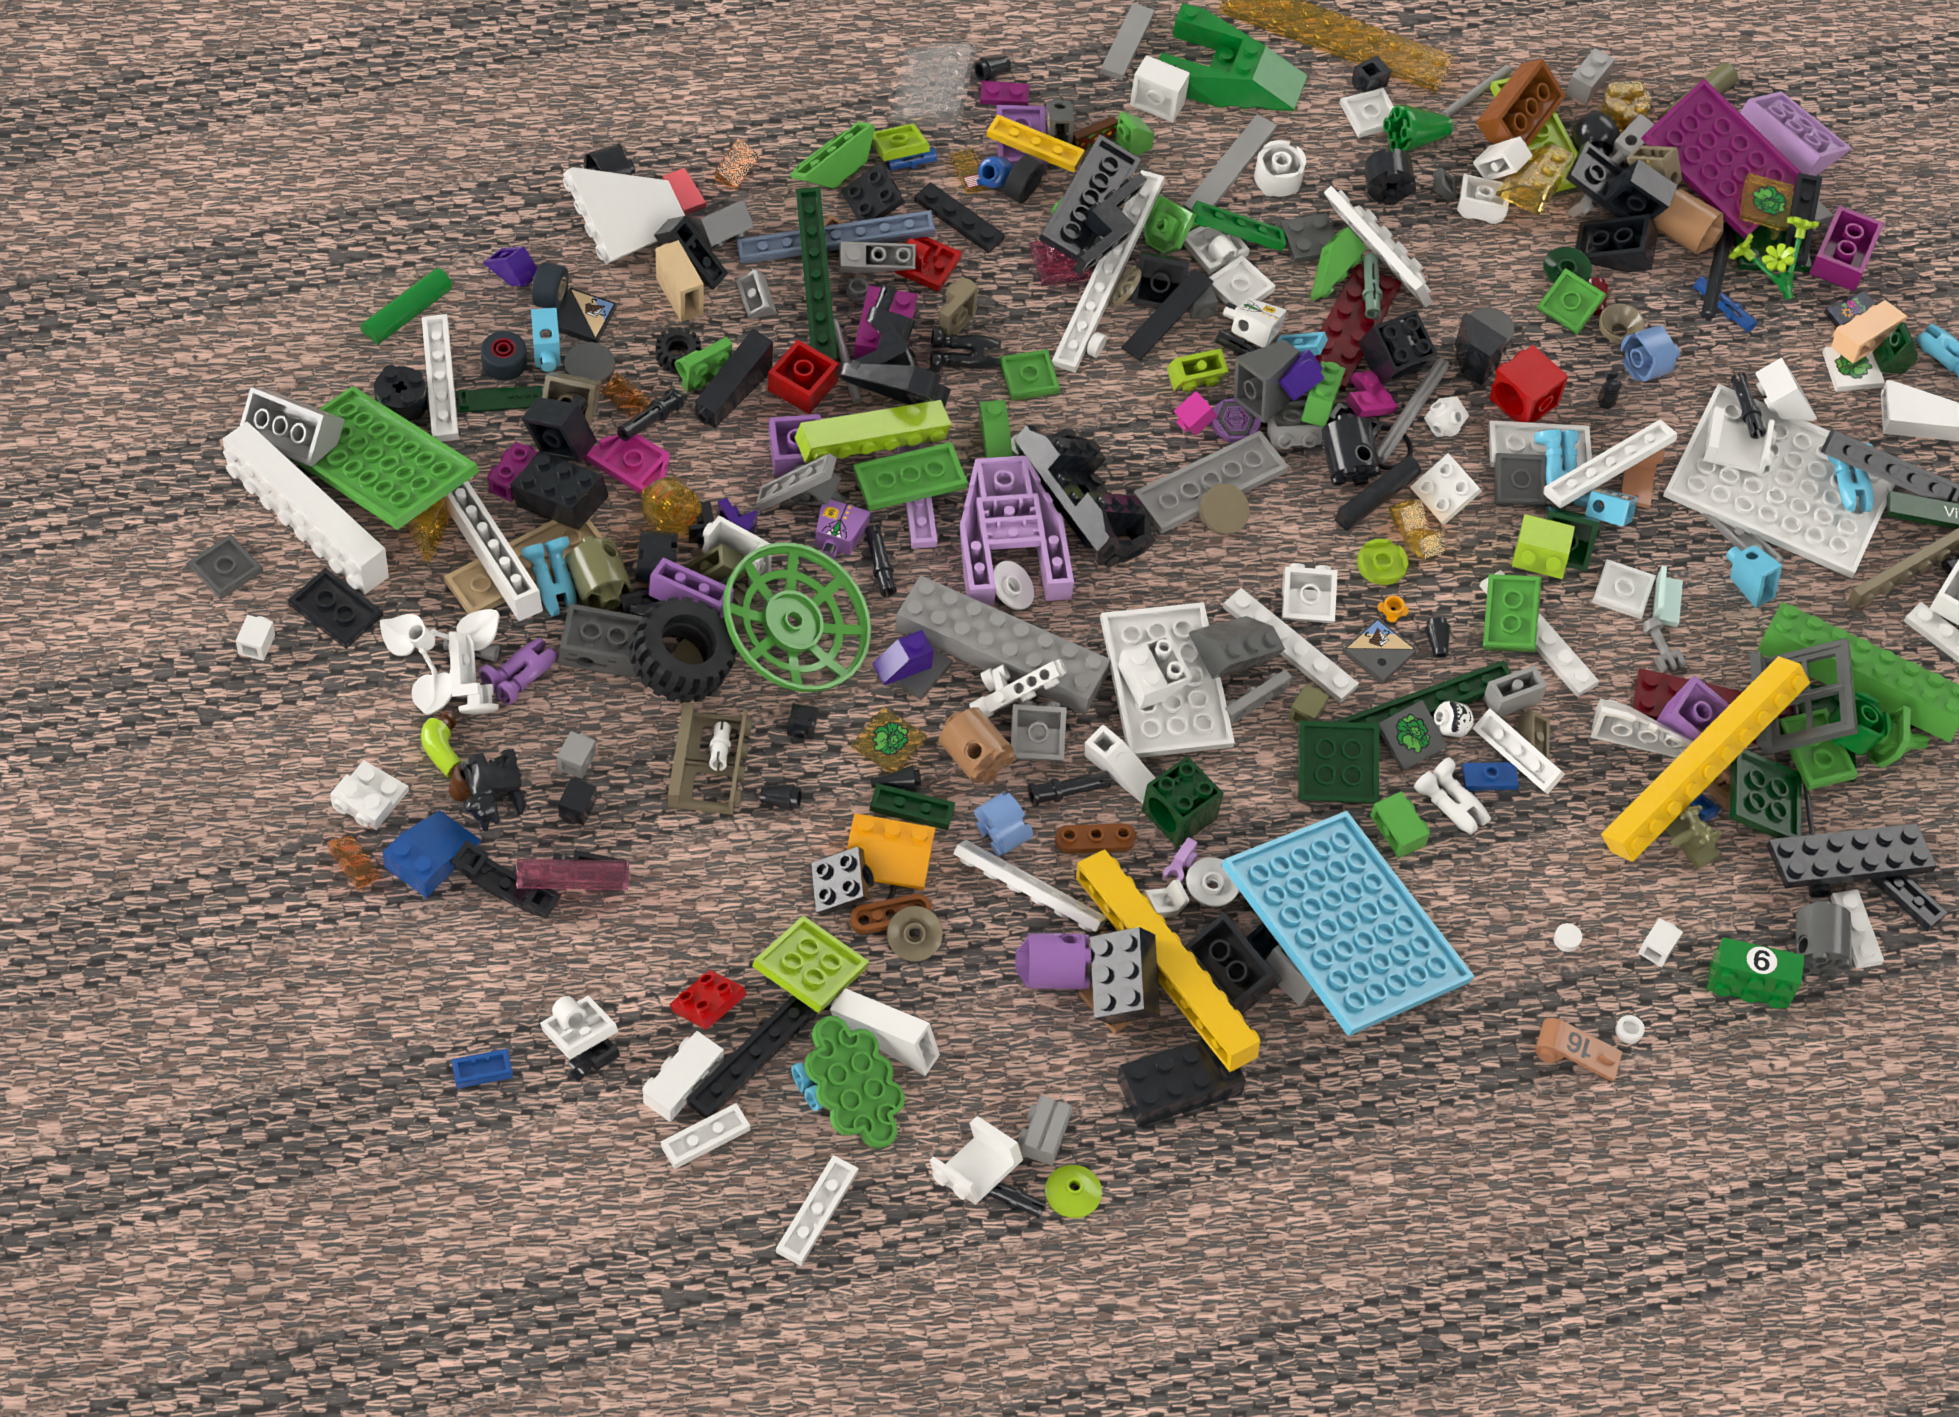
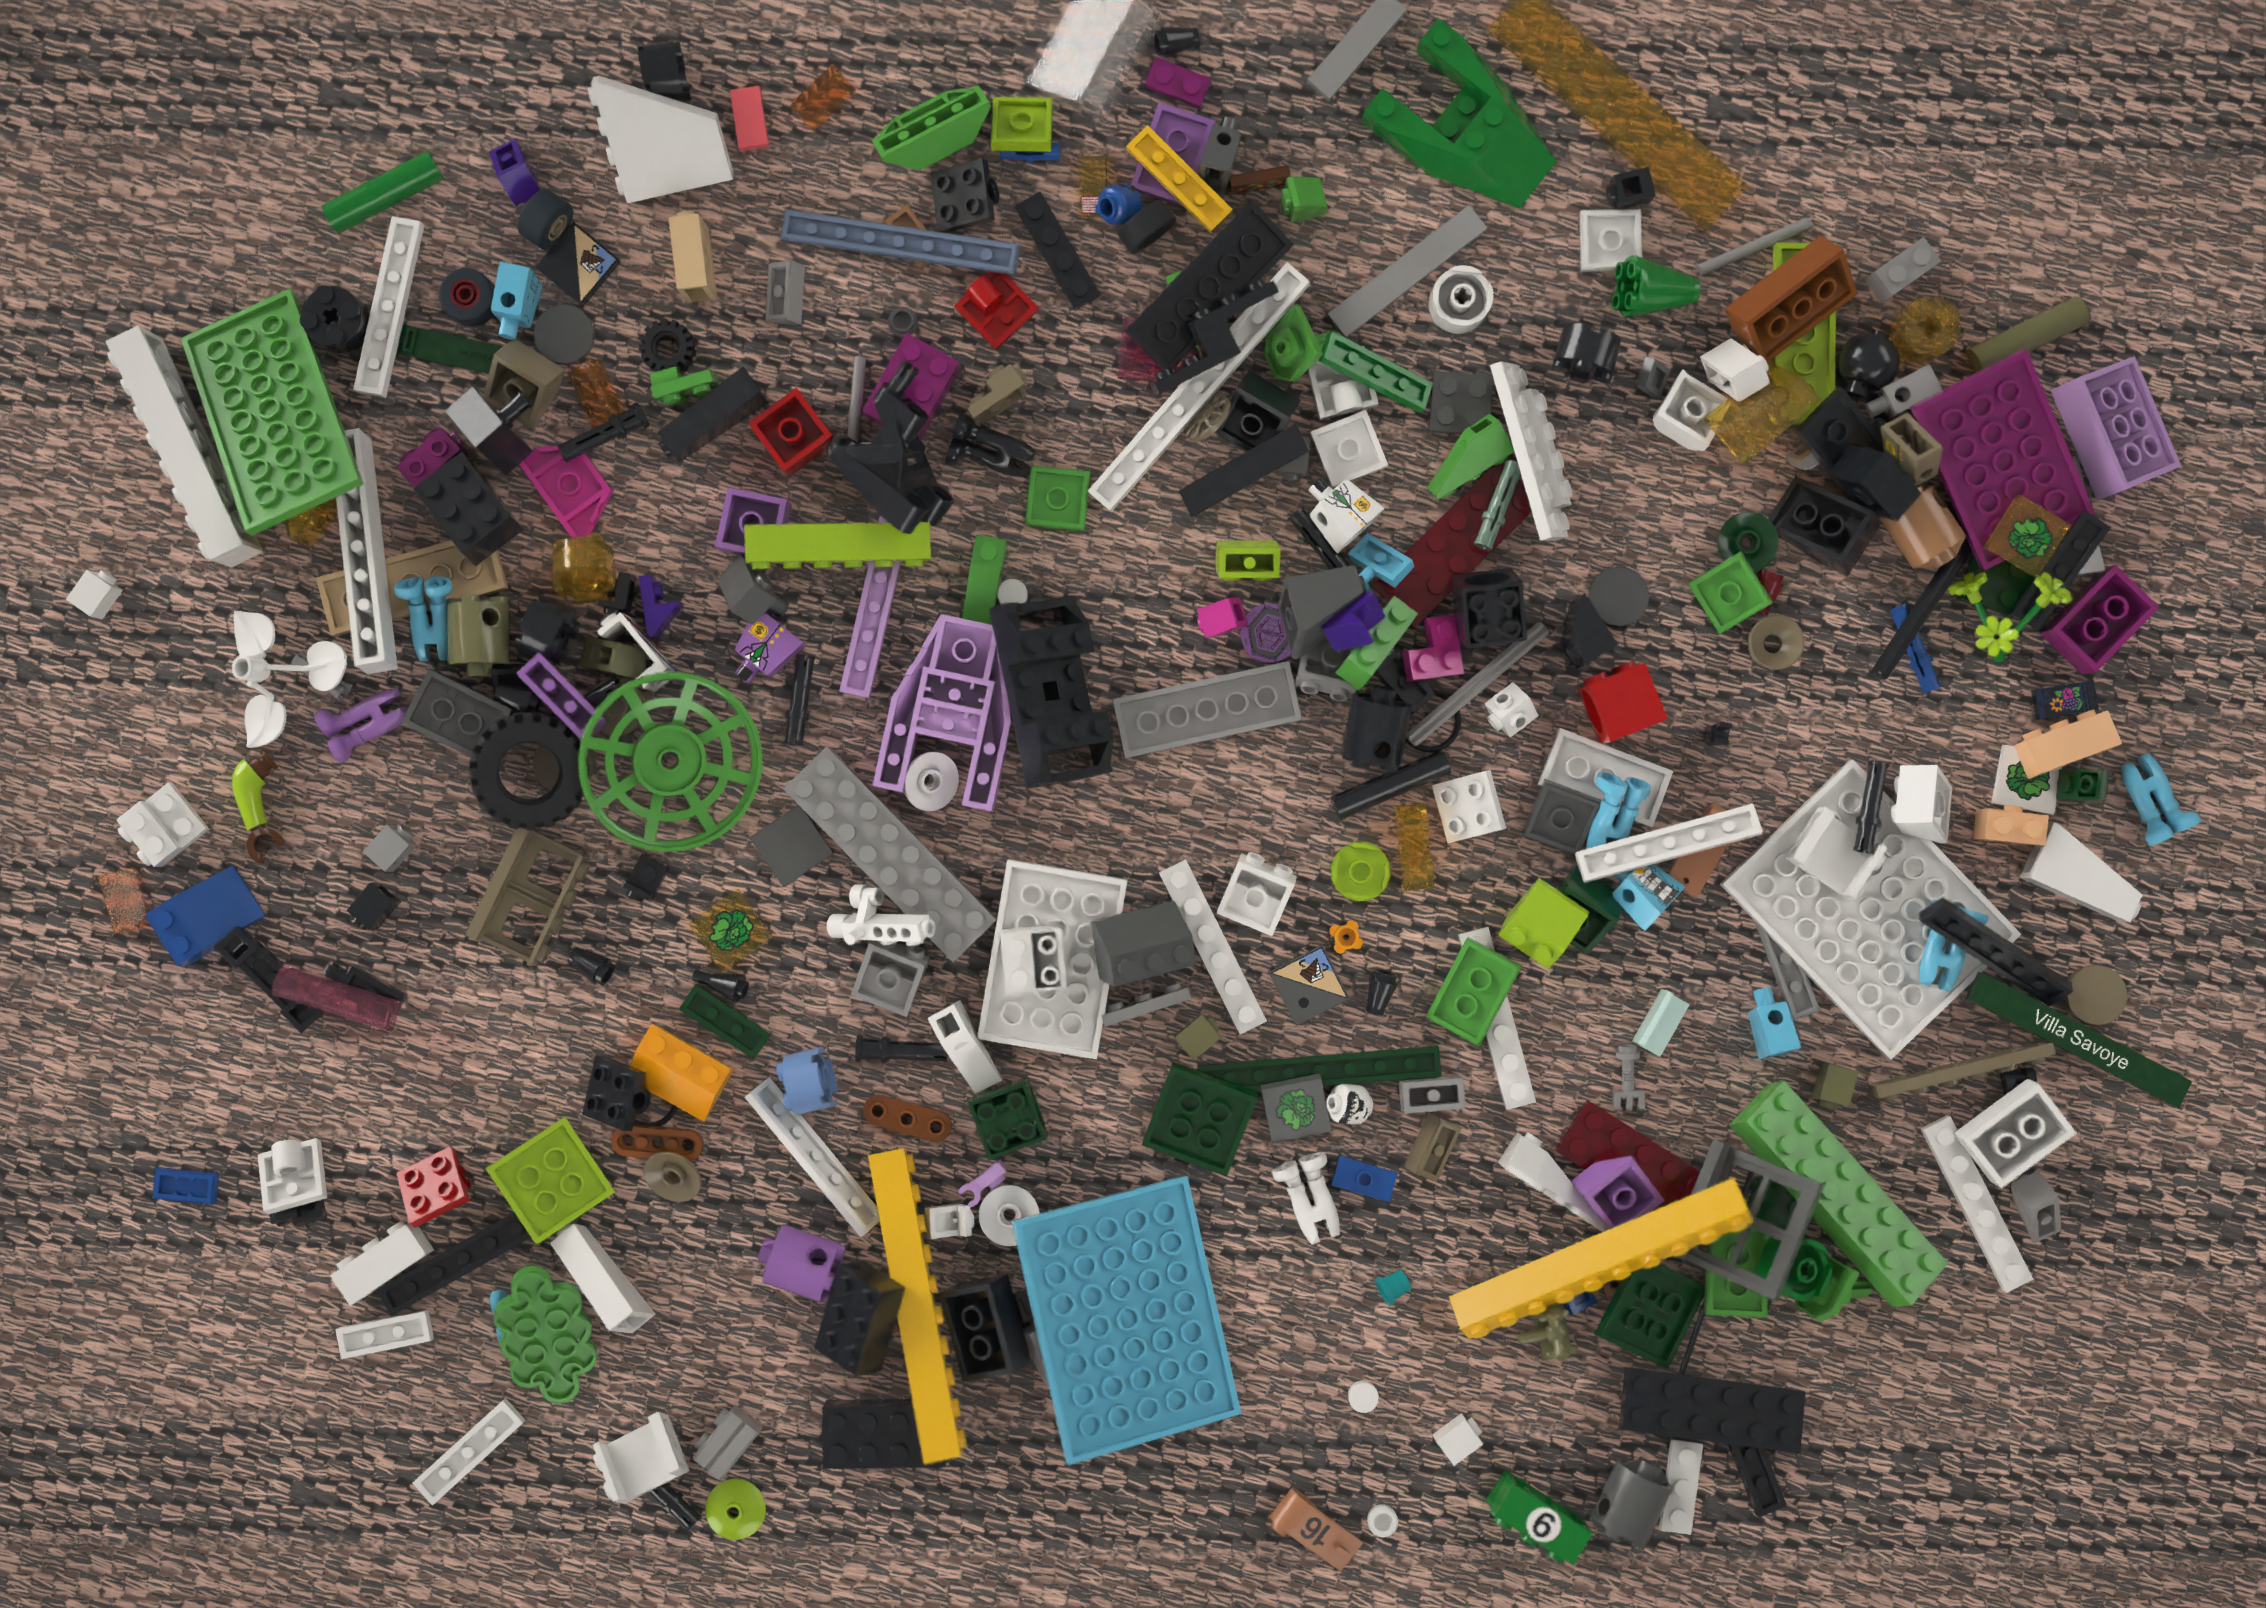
camera: 30 degrees right, 30 degrees up
(225, 566) = (91, 487): dark grey tile -> none
(292, 426) = (196, 332): light grey slope -> none
(335, 608) = (194, 584): black tile -> none
(464, 677) = (296, 723): white piece -> none
(490, 782) = (284, 861): black animal -> none
(701, 256) = (721, 219): black slope -> none
(720, 746) = (544, 885): white pin -> none
(722, 221) = (772, 178): slope -> none
(796, 482) = (725, 588): light grey tile -> none
(816, 271) = (855, 294): dark green plate -> none
(875, 257) = (931, 289): light grey slope -> none
(904, 658) = (774, 843): dark purple slope -> none
(910, 476) = (863, 608): bright green plate -> none
(976, 745) = (812, 977): medium nougat cylinder -> none
(1096, 344) = (1147, 484): white piece -> none
(1159, 88) = (1360, 140): white container -> none
(1224, 509) = (1205, 755): dark tan tile -> none
(1400, 824) = (1238, 1211): bright green brick -> none
(1518, 751) = (1403, 1168): white plate -> none
(1551, 846) = (1392, 1286): none -> teal piece
(1624, 589) = (1618, 991): white tile -> none
(1649, 353) = (1788, 698): medium blue brick -> none
(1822, 601) = (1834, 1085): none -> olive brick
(1857, 396) = (2011, 826): none -> light nougat brick

